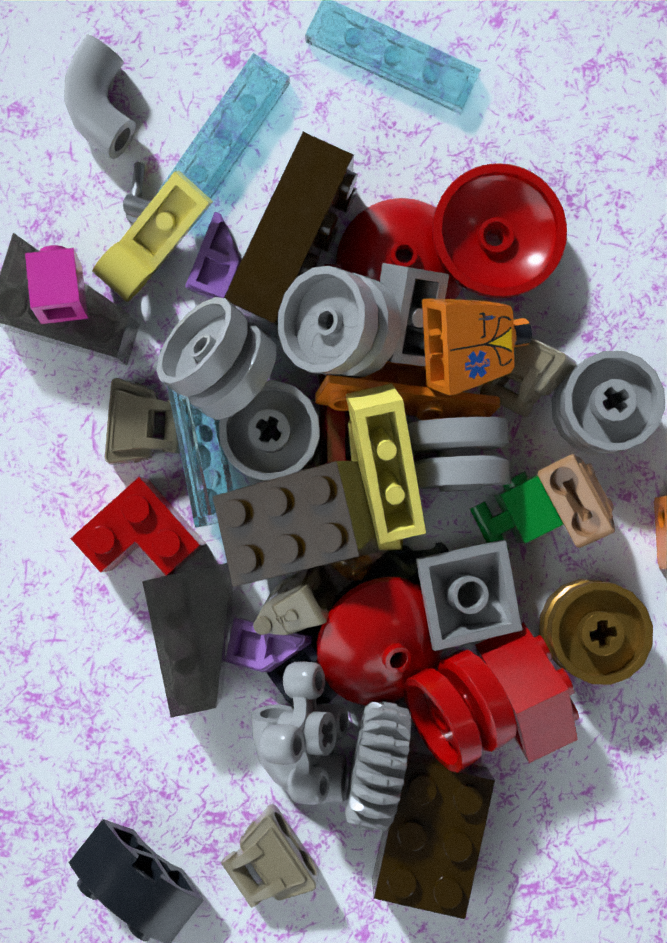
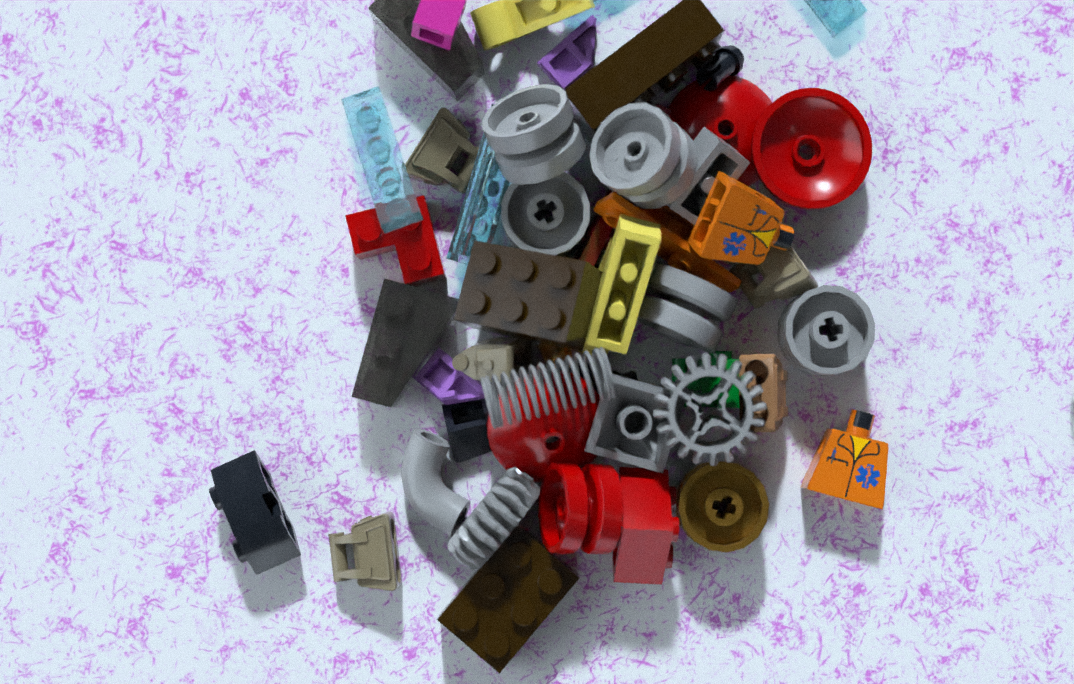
camera: 25 degrees right, 0 degrees up
(79, 464) = (382, 160): none -> clear light blue plate
(305, 733) = (451, 462): light grey gear -> none
(371, 190) = (727, 62): none -> black pin
(402, 558) = (598, 362): none -> light grey piece
(578, 550) = (720, 392): none -> light grey gear

